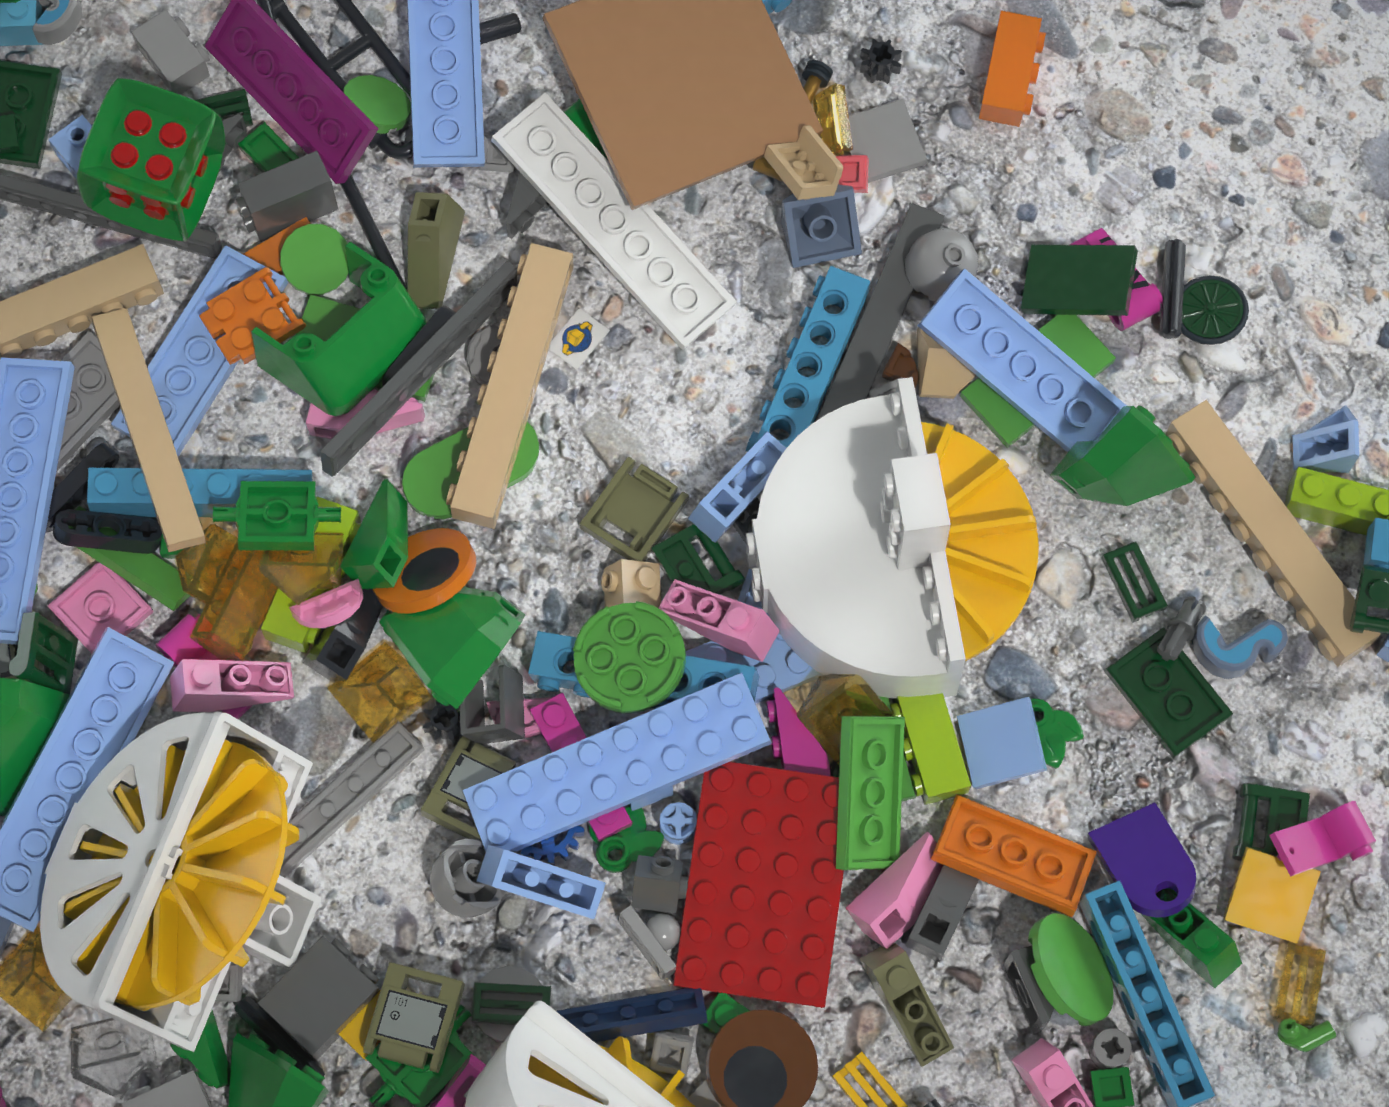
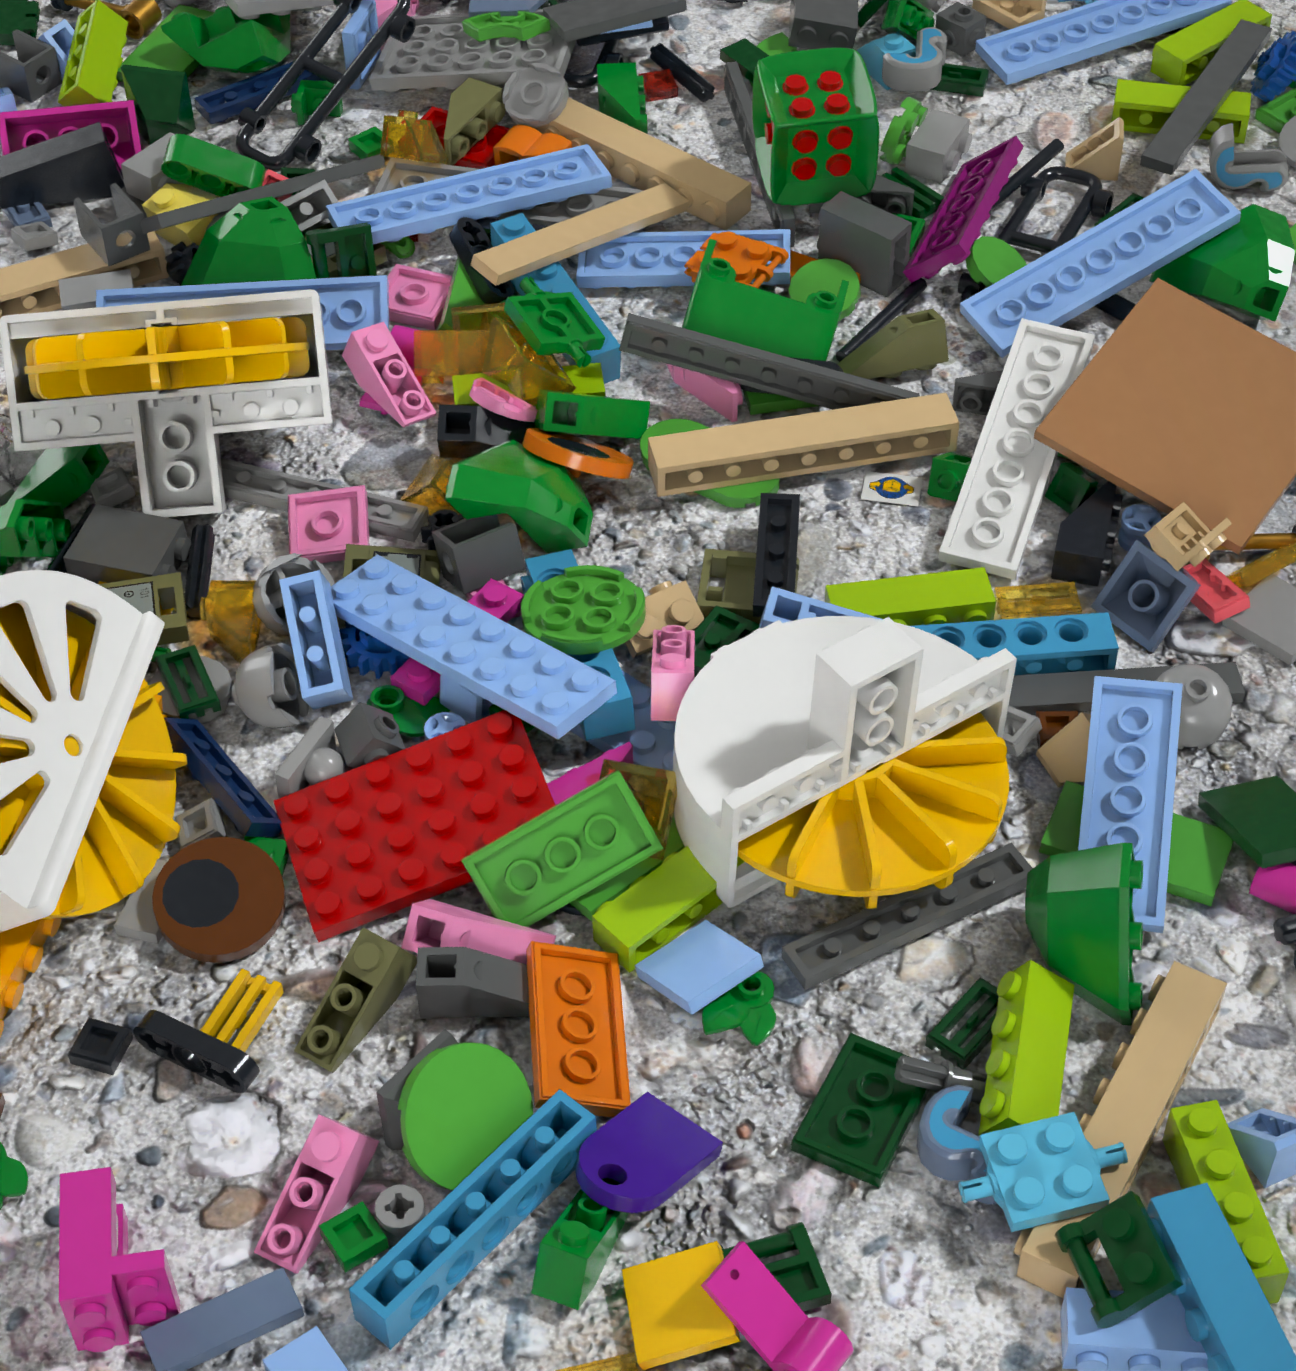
camera: 65 degrees right, 25 degrees down
(145, 67) = (901, 130): none -> bright green plate
(365, 942) = (198, 568): none -> black axle
(378, 813) = (327, 521): none -> bright pink tile
(452, 938) = (232, 617): none -> clear yellow slope
(558, 940) = (270, 687): none -> light grey cylinder
(600, 284) = (948, 475): none -> green bracket
(630, 473) = (776, 546): none -> black plate
(673, 209) = (1070, 487): none -> dark green tile
(732, 402) = (920, 598): none -> lime brick
(733, 233) = (1083, 538): none -> black slope
(740, 176) = (1135, 523): none -> light blue wheel
(759, 329) = (1041, 601): none -> clear yellow tile
(1031, 629) = (905, 917): none -> dark grey plate
(1195, 565) = (1027, 1048): none -> lime brick
(1301, 610) = (1043, 1172): none -> medium azure plate

